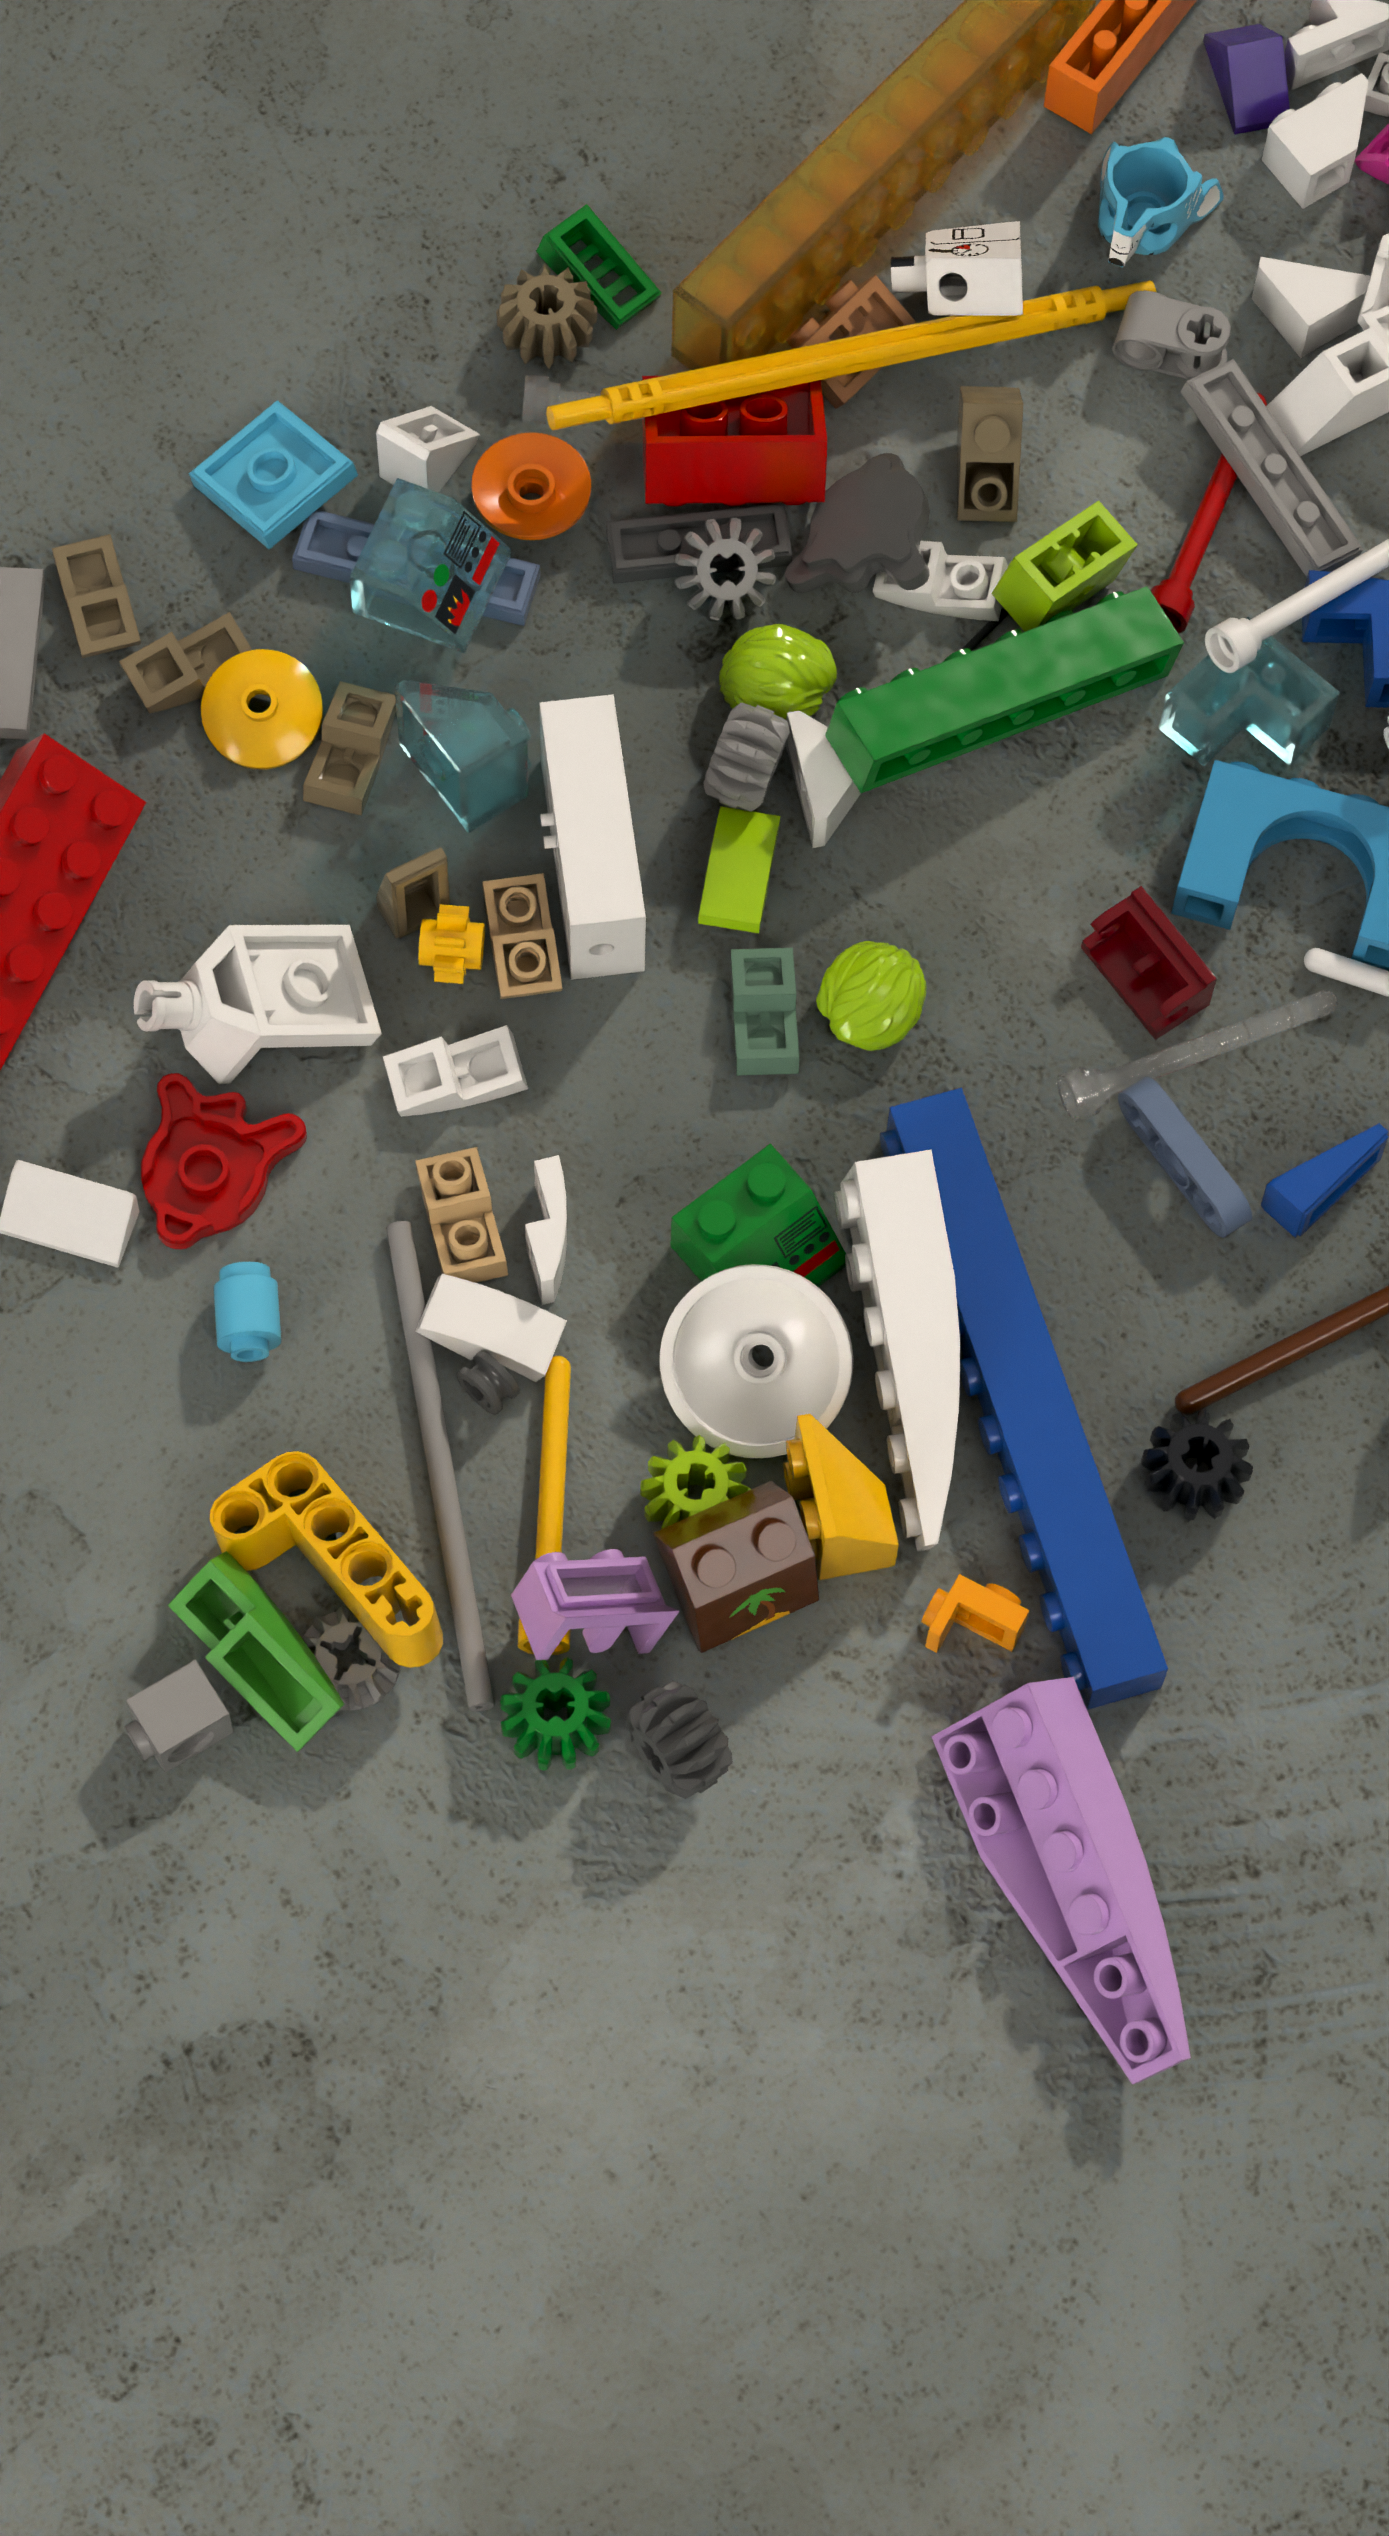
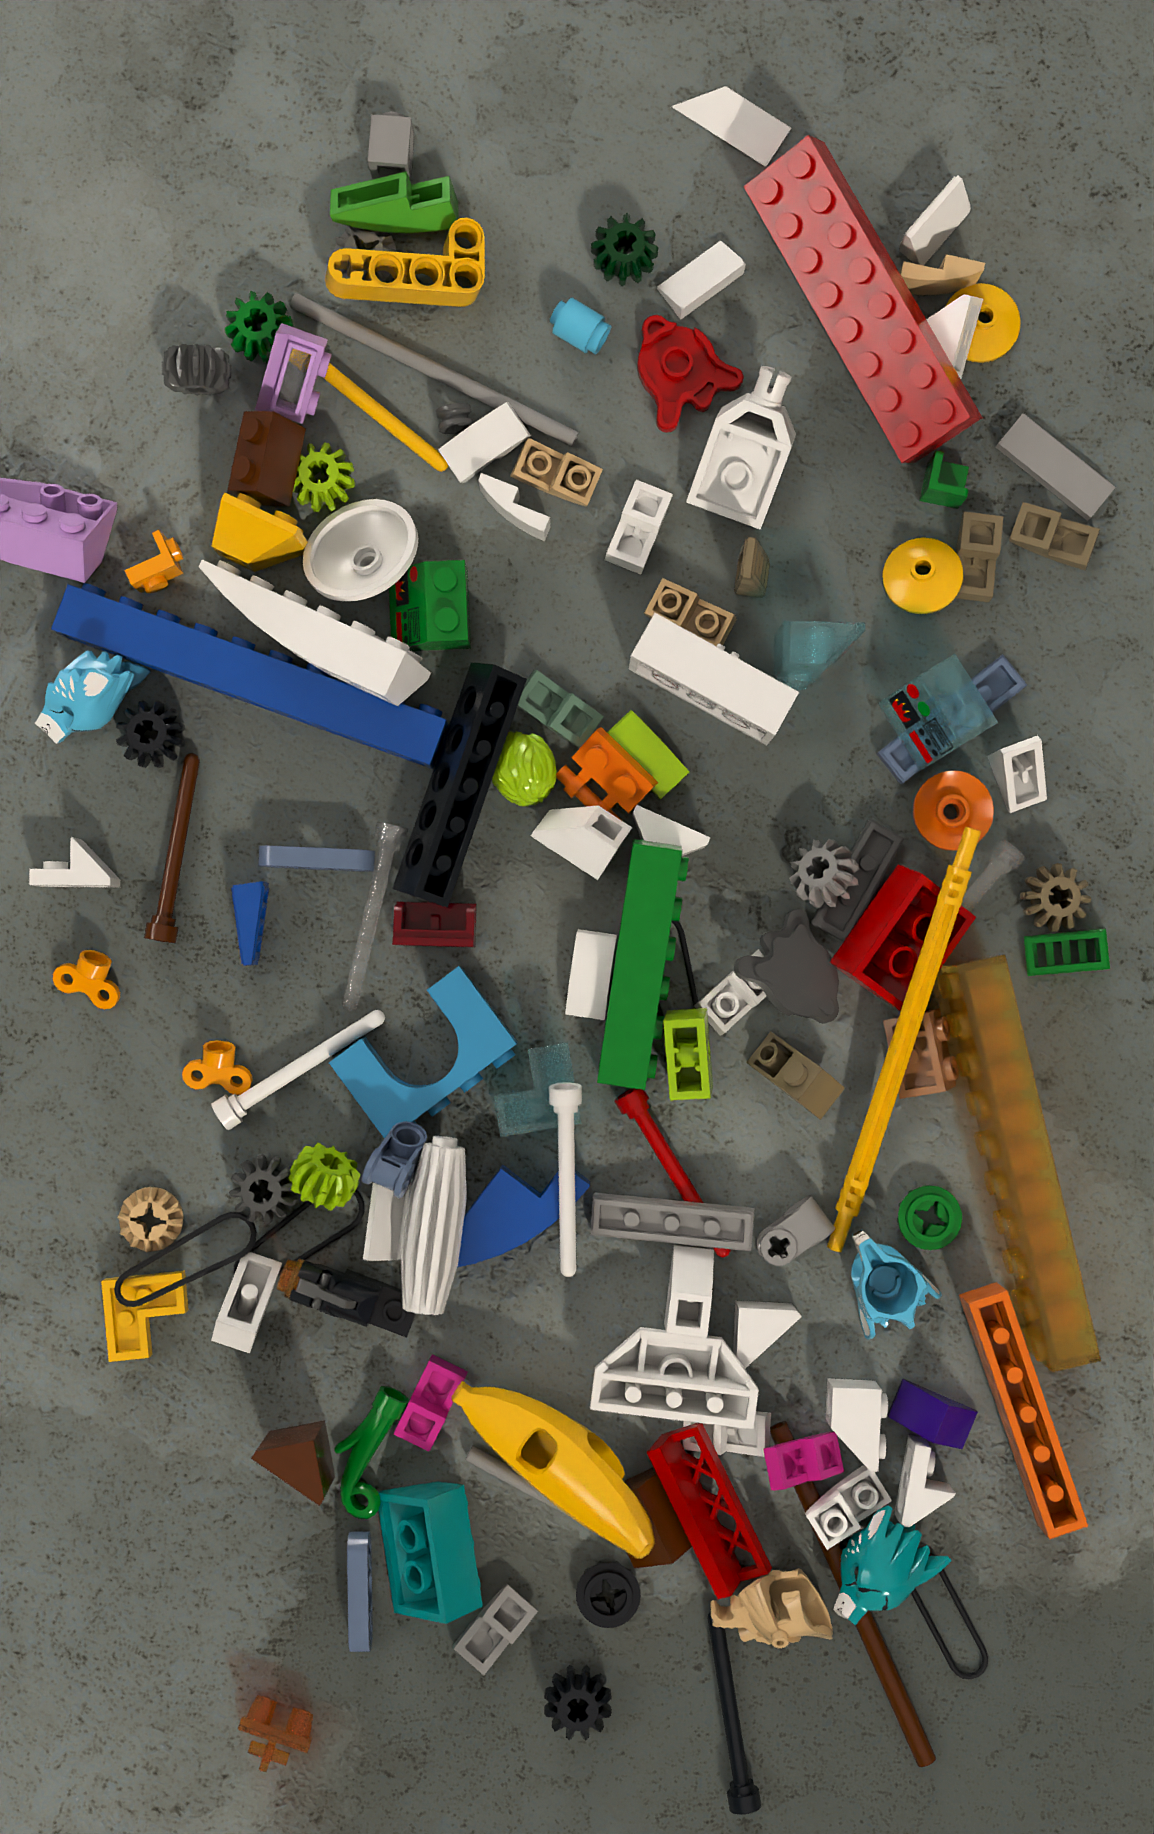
camera: 130 degrees right, 20 degrees up
(109, 1345) = (626, 235): none -> dark green gear
(128, 753) = (944, 482): none -> green panel
(273, 474) = (1061, 679): medium azure plate -> none
(350, 748) = (863, 602): dark tan slope -> none
(451, 944) = (708, 570): yellow gear -> none
(746, 757) = (702, 799): light grey gear -> none
(778, 670) = (743, 859): lime hair -> none
(791, 884) = (612, 769): none -> orange plate
(901, 861) = (583, 836): none -> white slope
(966, 271) = (911, 1147): white torso -> none
(979, 1019) = (459, 783): none -> black brick
(1046, 201) = (935, 1235): none -> green gear
(1057, 747) = (591, 974): none -> white slope
(1214, 1571) = (87, 694): none -> medium azure piece

